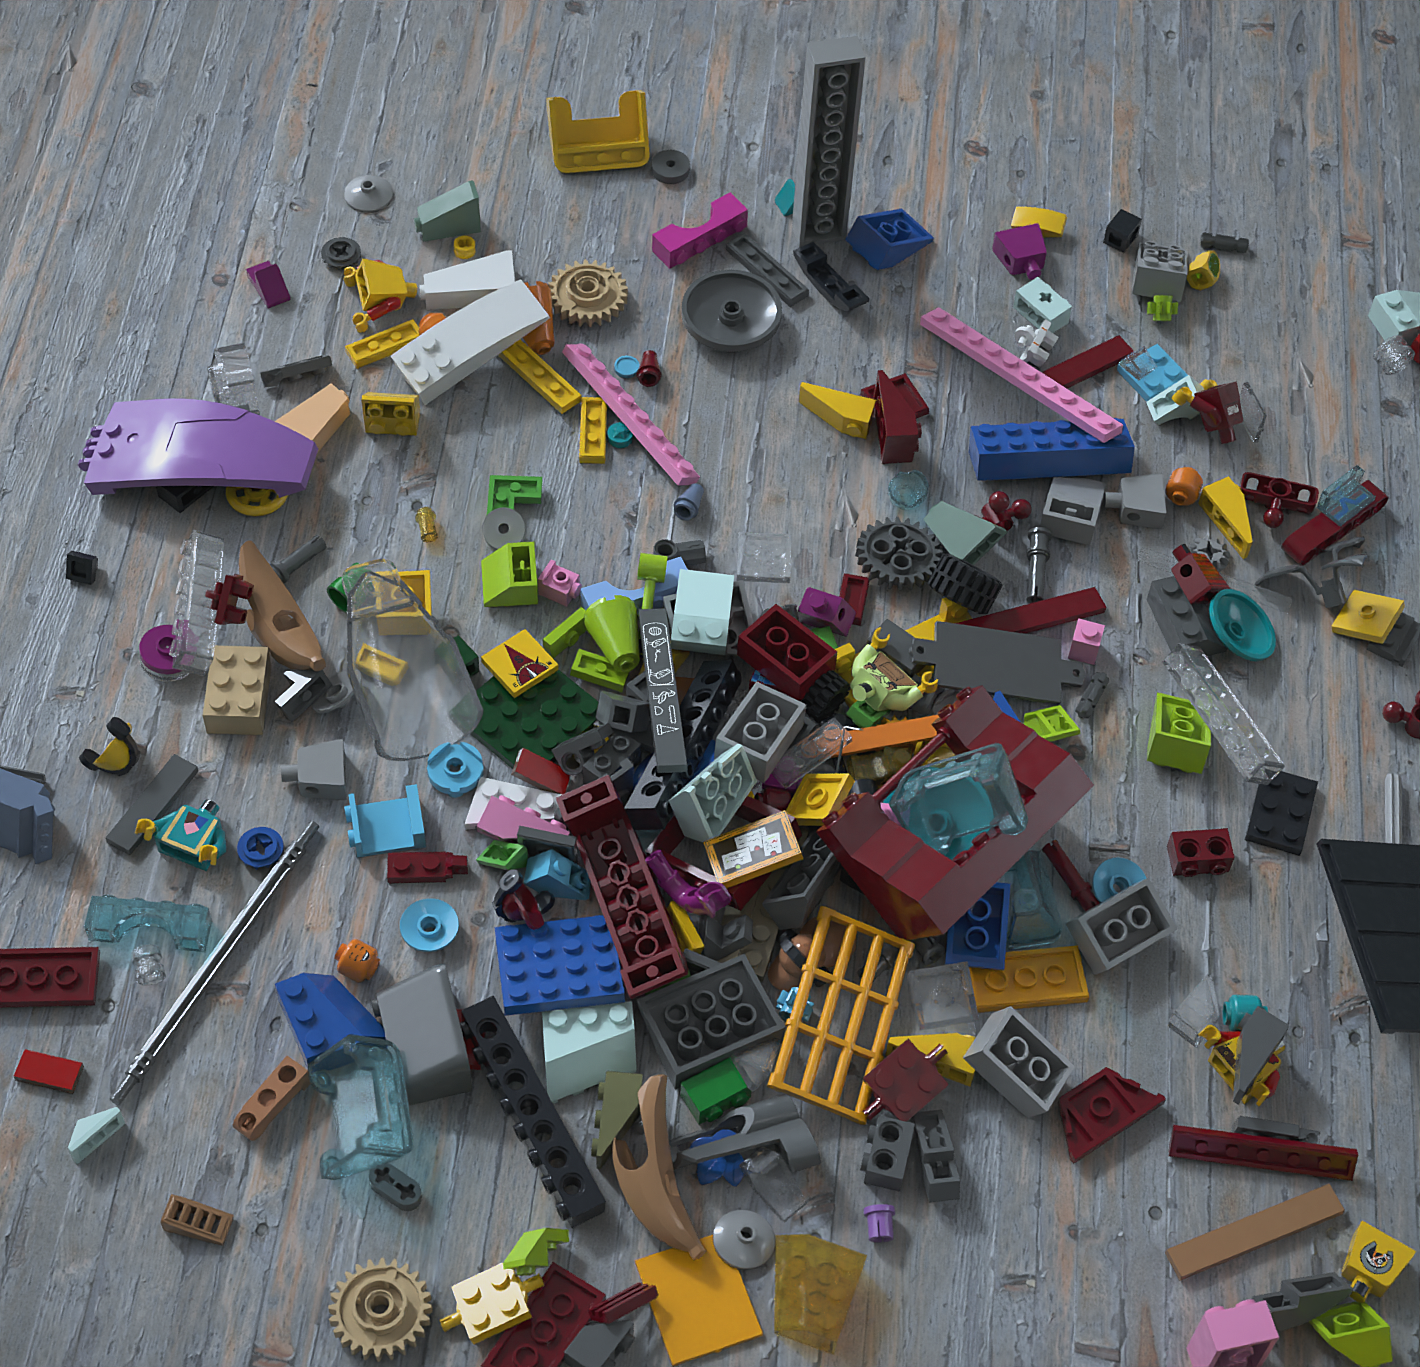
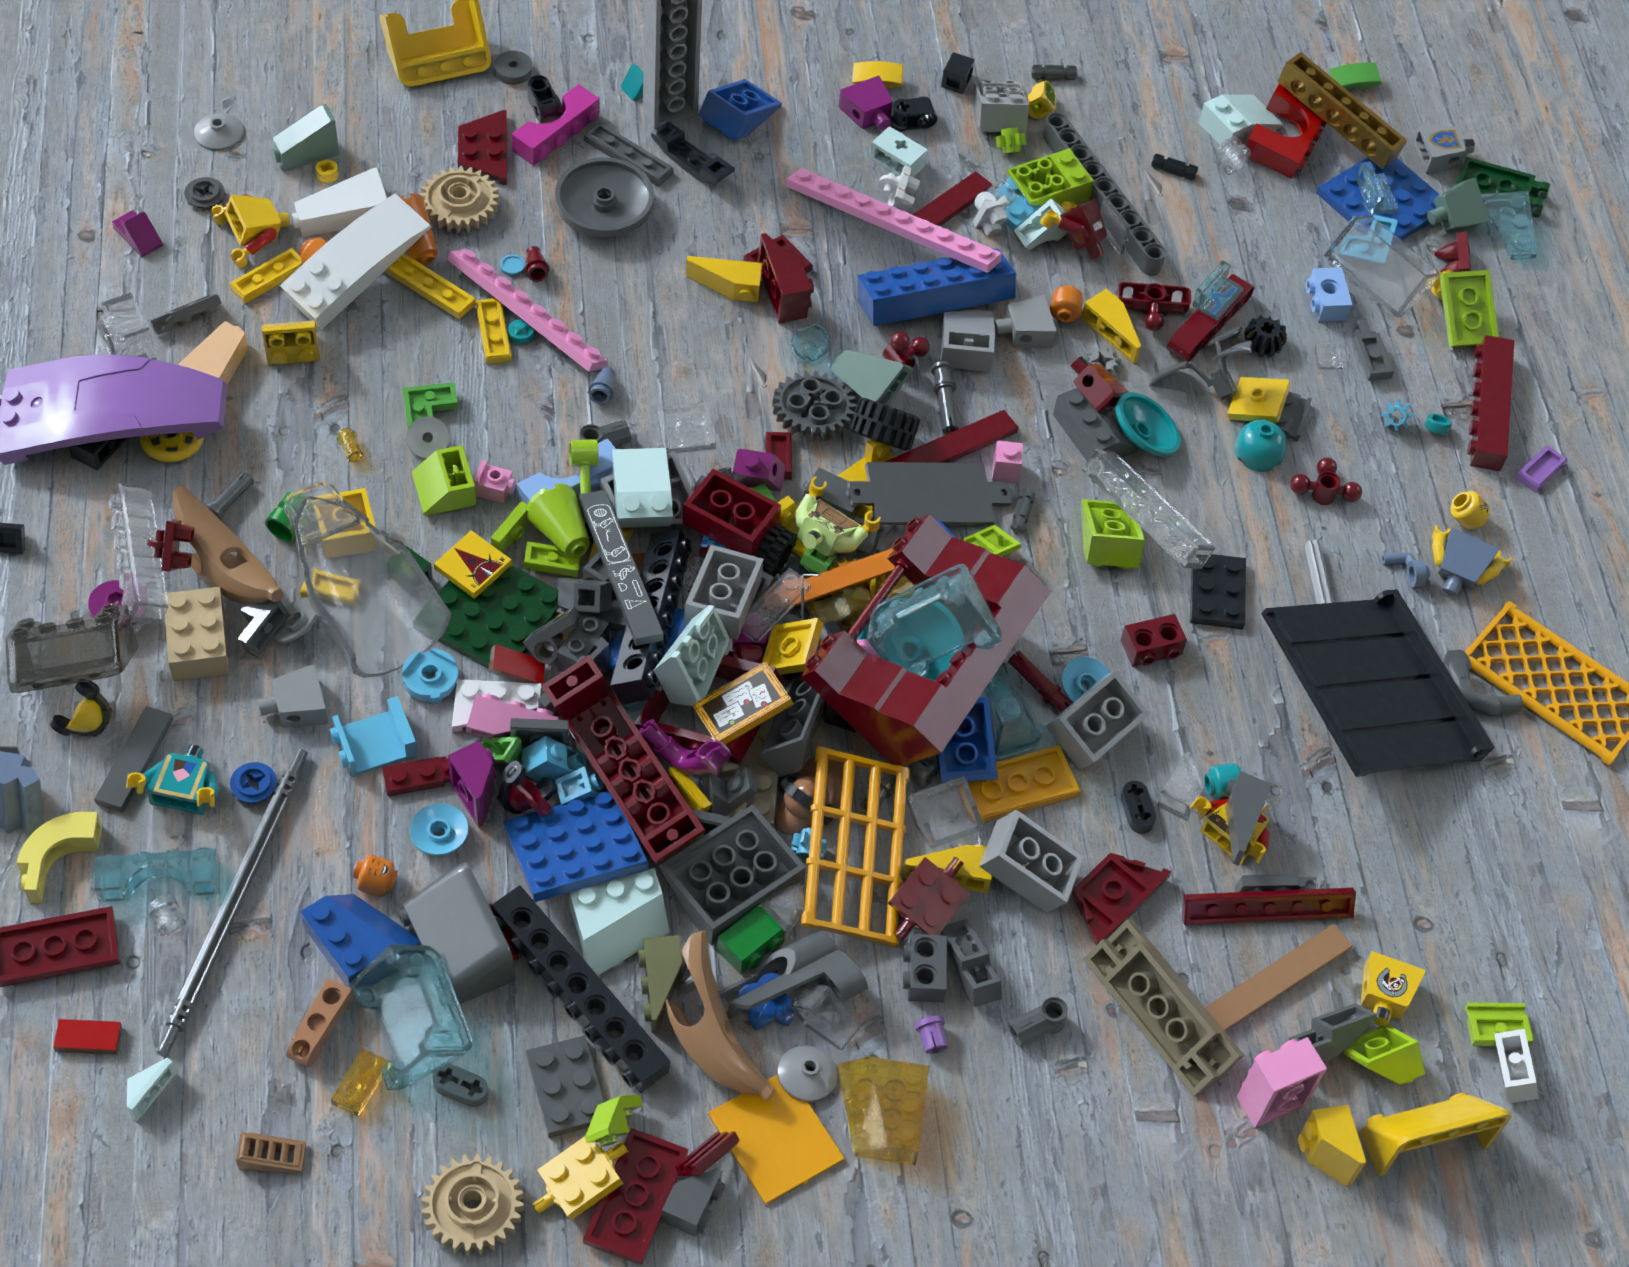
camera: 15 degrees left, 0 degrees up
(54, 873) = (51, 841): none -> light yellow arch
(110, 690) = (69, 652): none -> clear smoke windscreen
(297, 1165) = (359, 1082): none -> clear yellow tile
(473, 880) = (473, 779): none -> magenta slope
(498, 1205) = (565, 1085): none -> dark grey plate
(576, 904) = (578, 785): none -> medium azure bracket
(625, 242) = (484, 146): none -> dark red wing
(692, 201) = (543, 98): none -> black piece
(990, 1232) = (1037, 1022): none -> dark grey piece
(1068, 266) = (914, 112): none -> black piece
(1123, 380) = (990, 212): none -> white hips
(1127, 1240) = (1163, 1008): none -> dark tan slope
(1153, 1023) = (1143, 806): none -> black beam
(1197, 353) = (1054, 178): none -> lime slope
(1245, 367) = (1142, 244): none -> dark grey beam
(1331, 358) = (1174, 166): none -> black axle
(1360, 665) = (1260, 445): none -> teal cylinder
(1389, 550) = (1266, 335): none -> black gear

